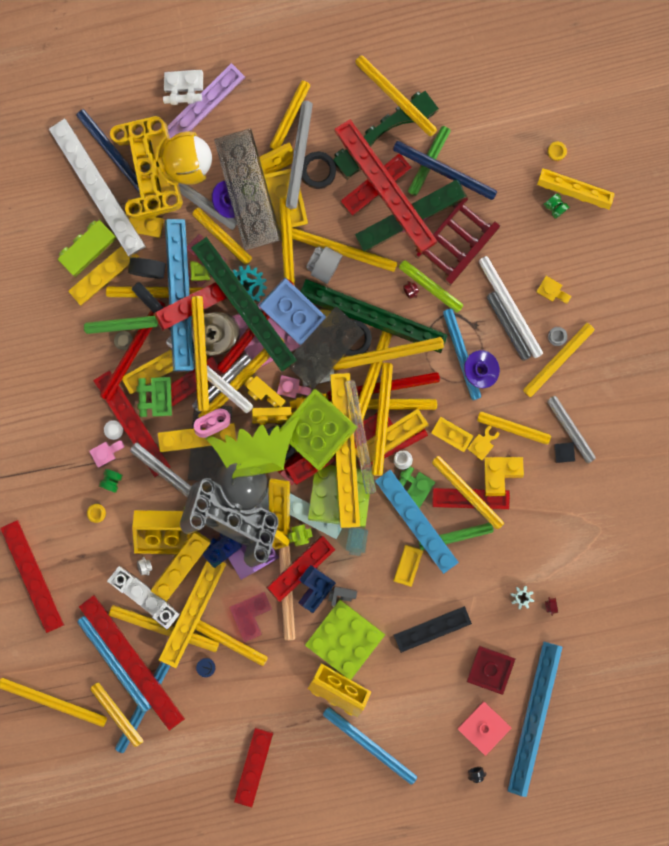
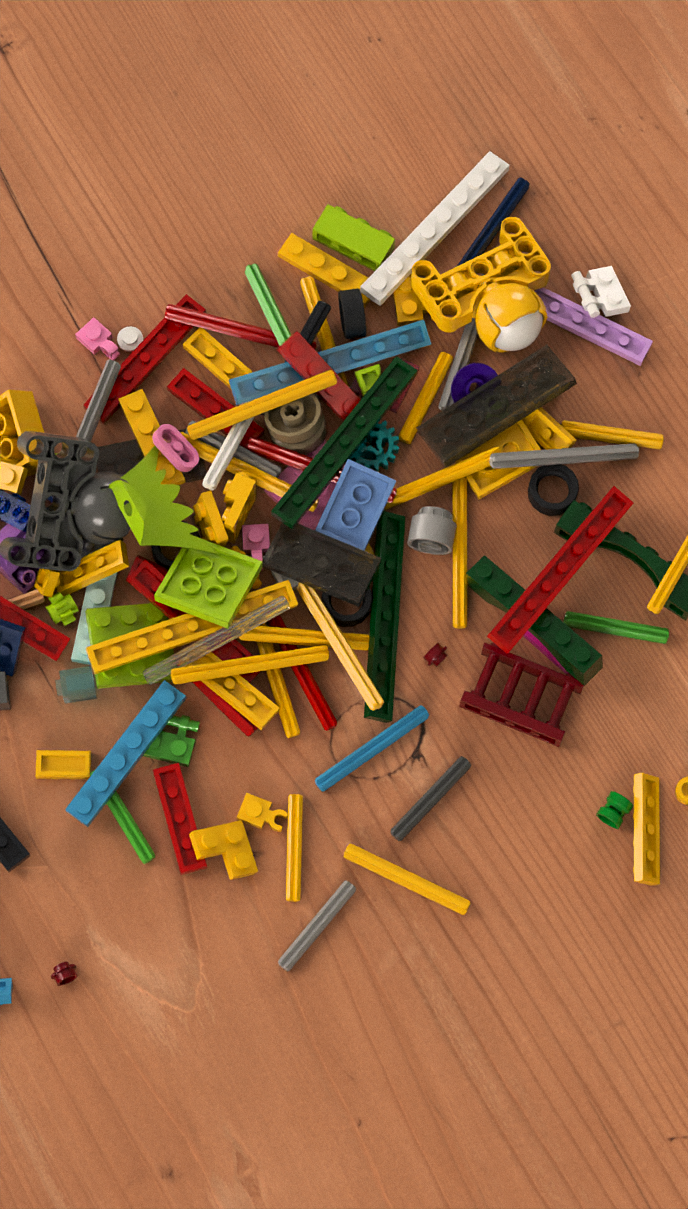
camera: 70 degrees right, 15 degrees down
(96, 513) = (15, 350): yellow plate -> none
(110, 485) = (57, 356): green wheel -> none
(123, 340) = (250, 315): dark tan plate -> none
(161, 396) = (189, 379): bright green plate -> none
(366, 193) = (538, 554): red plate -> none
(403, 460) = (204, 712): white plate -> none
(431, 286) = (449, 680): lime axle -> none
(444, 170) = (610, 648): dark blue axle -> none
(452, 434) = (259, 767): yellow plate -> none
(467, 492) = (185, 808): yellow axle -> none
(489, 369) = (372, 782): dark purple dish -> none
(510, 307) = (456, 793): white axle -> none
(524, 602) = (58, 923): light aqua gear -> none
(551, 289) = (498, 840): yellow plate -> none
(557, 336) = (438, 867): light grey plate -> none
(564, 452) = (282, 926): black plate -> none

